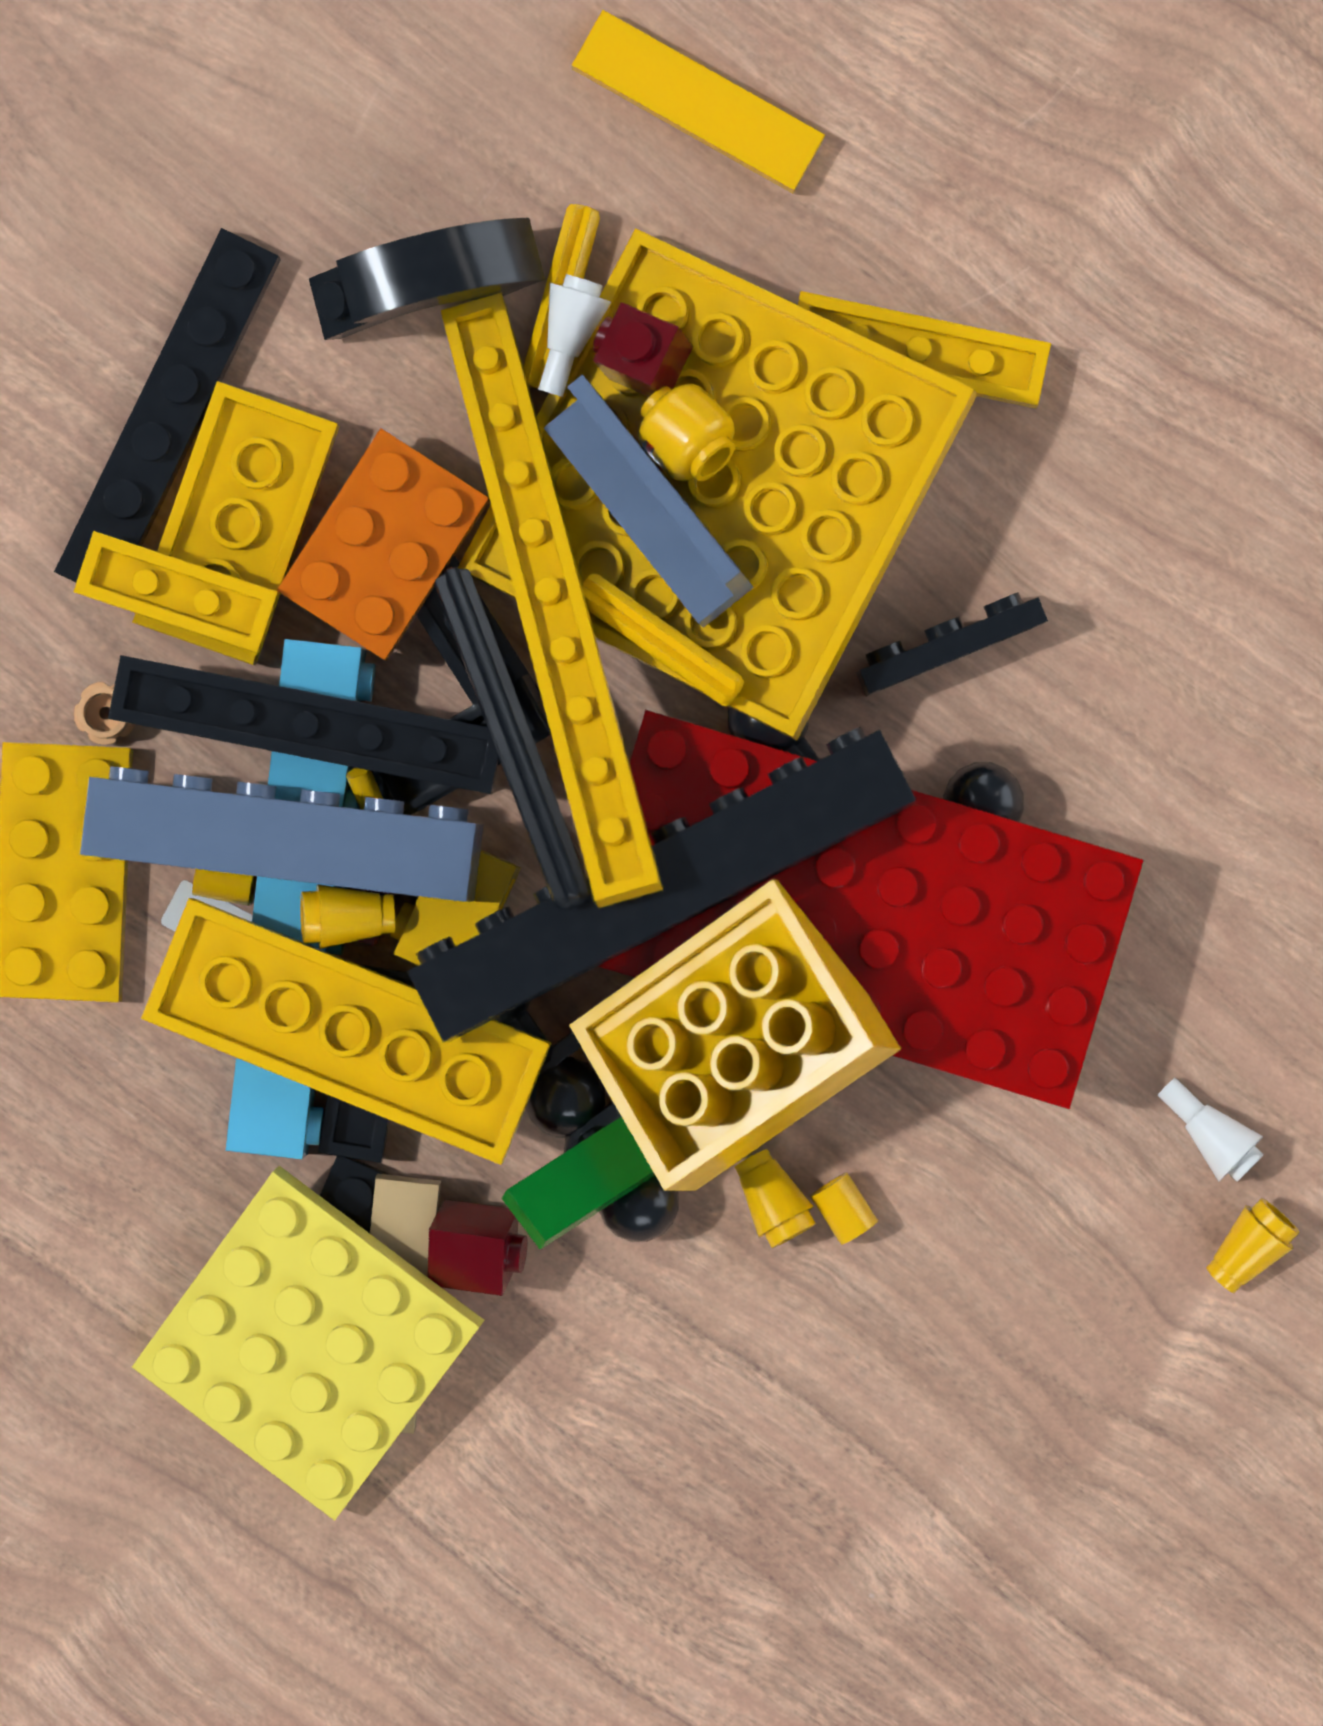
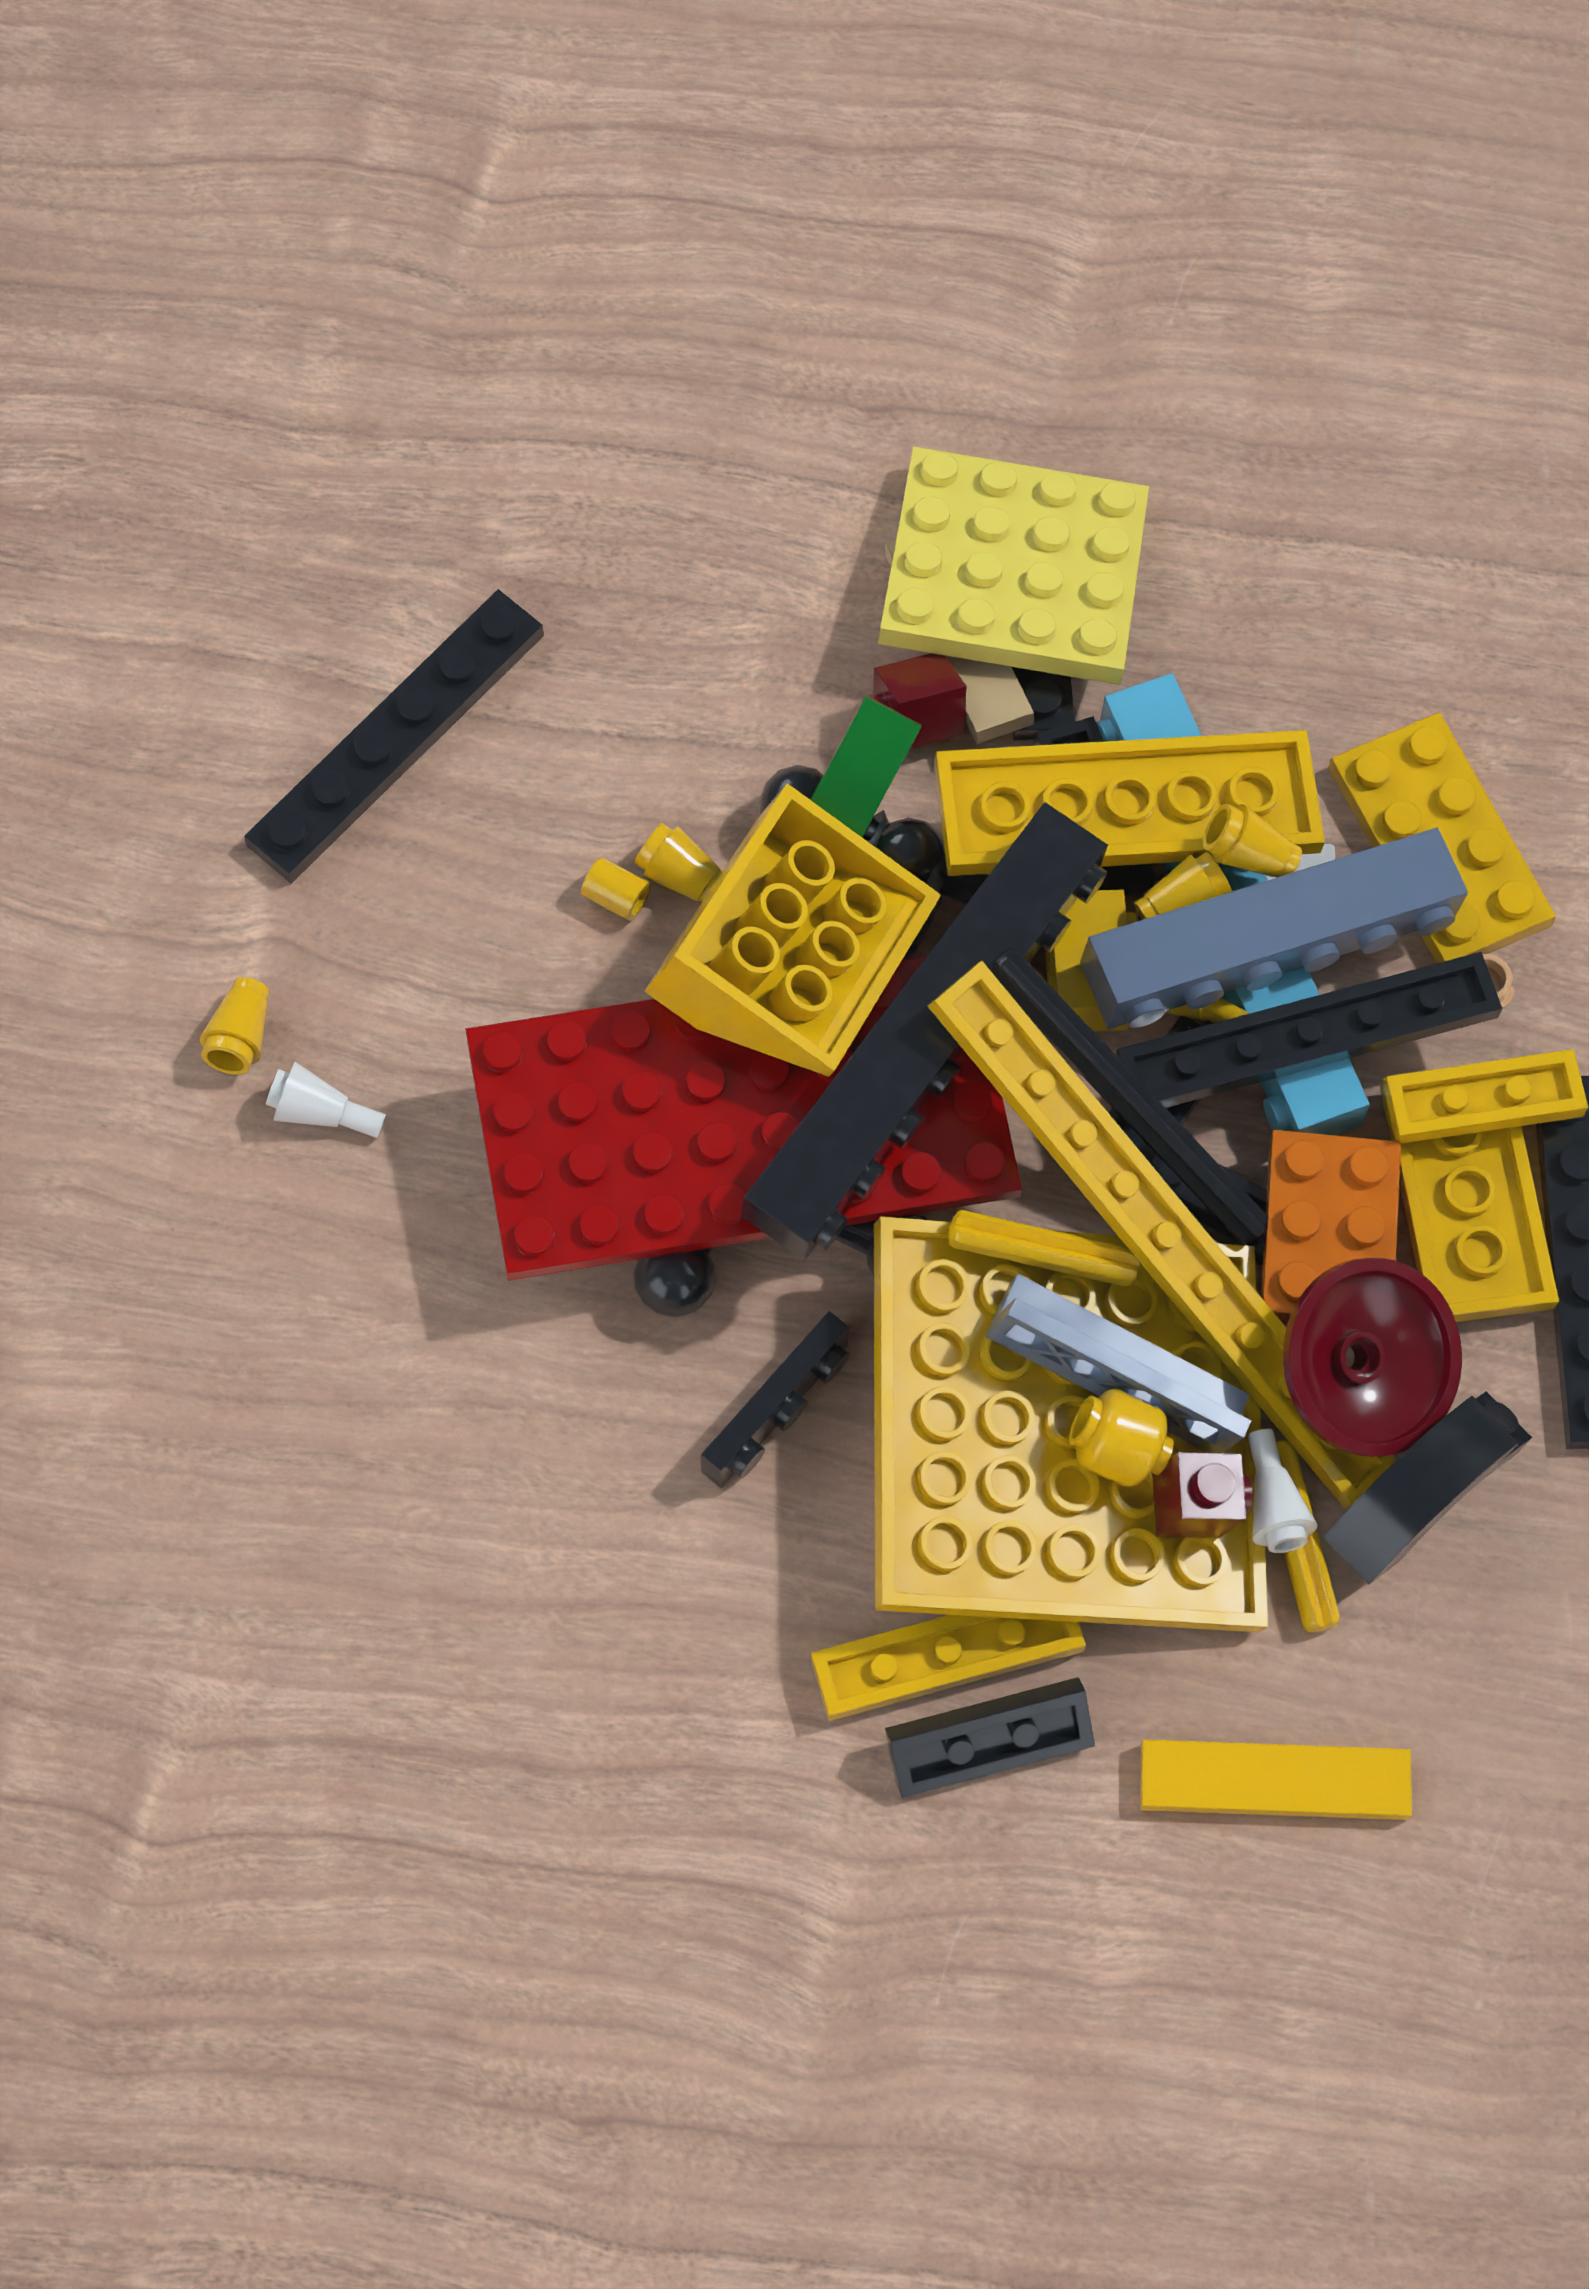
camera: 150 degrees right, 20 degrees down
(266, 924) = (1248, 842): none -> yellow cone
(409, 372) = (1402, 1351): none -> dark red dish
(923, 257) = (990, 1737): none -> black plate
(967, 1470) = (394, 736): none -> black plate

